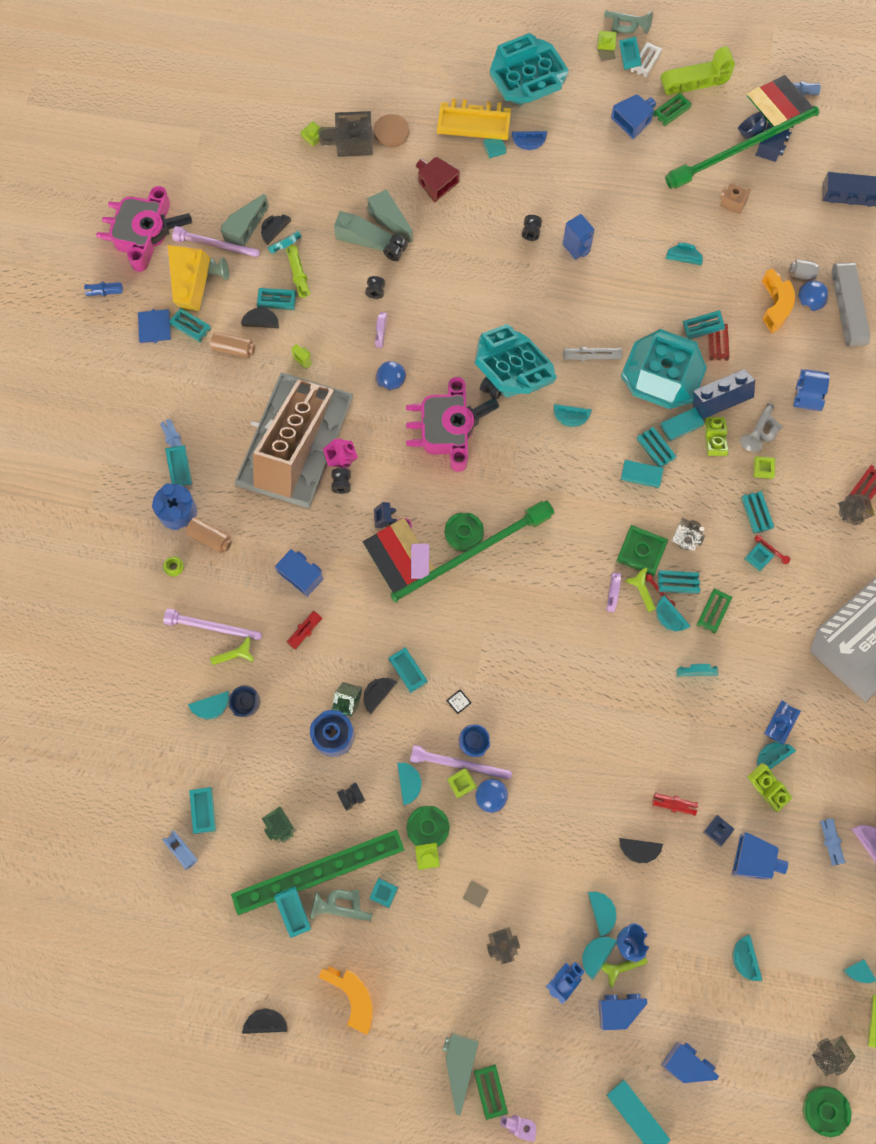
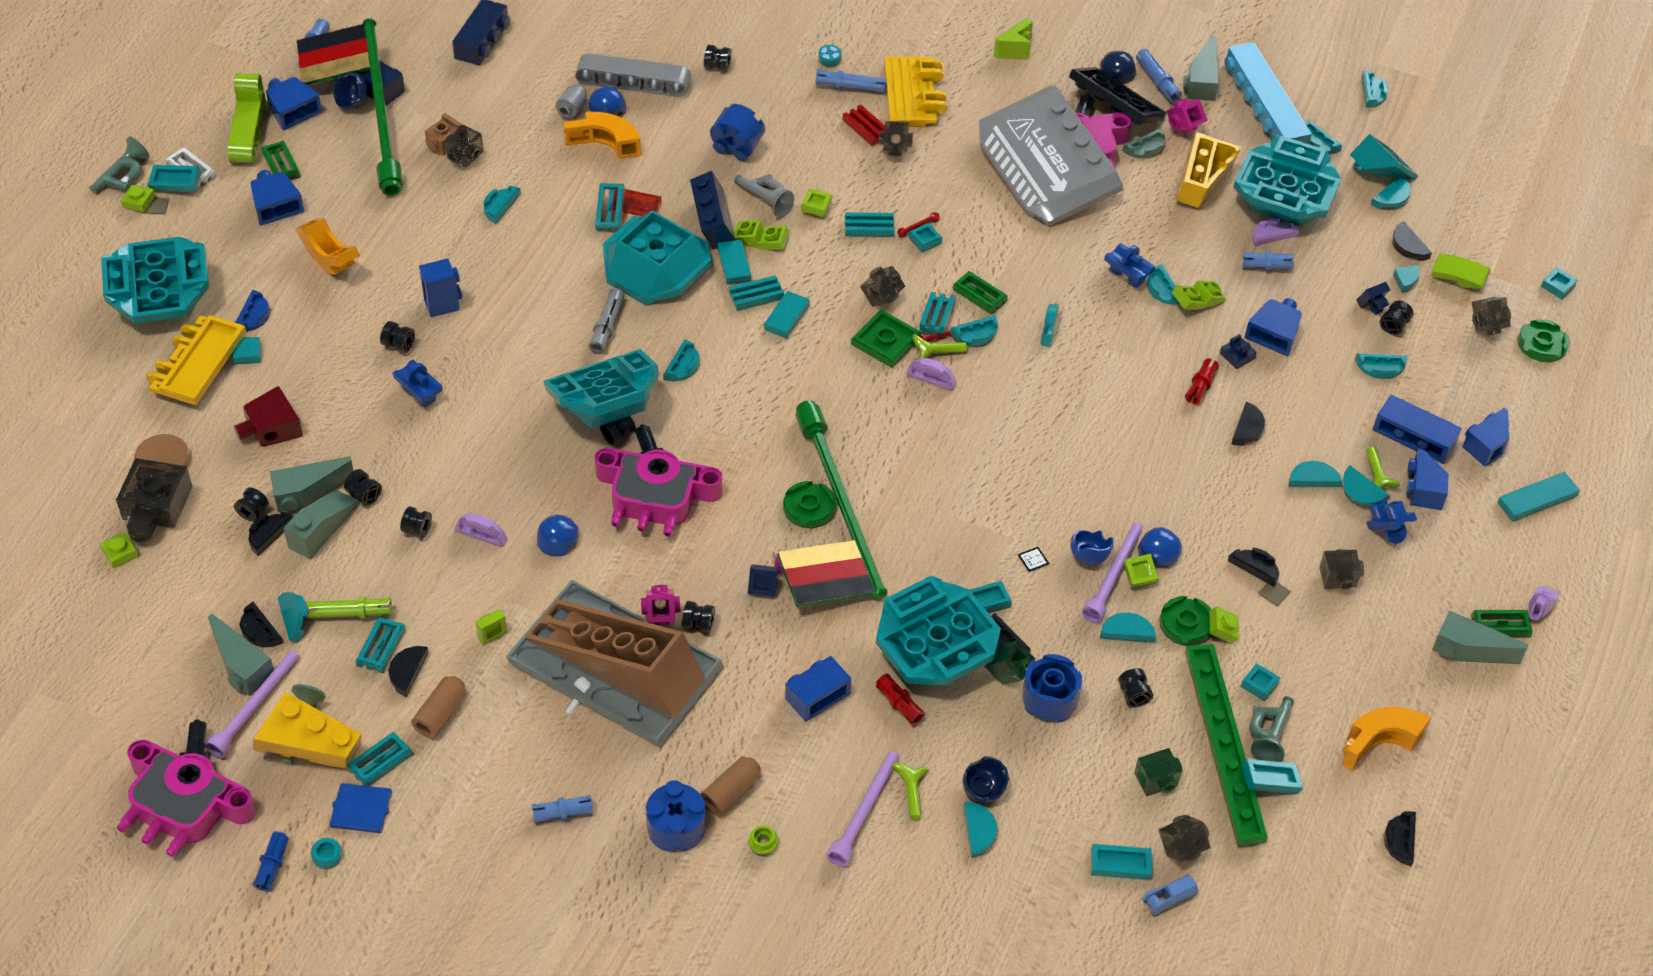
camera: 80 degrees left, 20 degrees down
(117, 317) = (326, 853): none -> teal tile
(178, 465) = (611, 804): teal tile -> none
(222, 852) = (1185, 838): none -> clear smoke brick
(349, 205) = (267, 530): none -> black tile
(351, 621) = (934, 611): none -> teal piece
(363, 189) = (251, 504): none -> black wheel
(419, 561) = (840, 551): lavender sticker -> none
(492, 251) = (418, 382): none -> blue hips
(498, 876) = (1257, 563): none -> black tile
(597, 160) = (325, 247): none -> light orange arch
(631, 942) = (1354, 455): blue hair -> none
(678, 998) = (1417, 428): none -> blue brick
(725, 212) = (464, 146): none -> clear smoke brick
(728, 94) = (292, 101): none -> blue torso
(802, 966) = (1396, 317): none -> black wheel
(820, 943) = (1374, 297): none -> dark blue tile

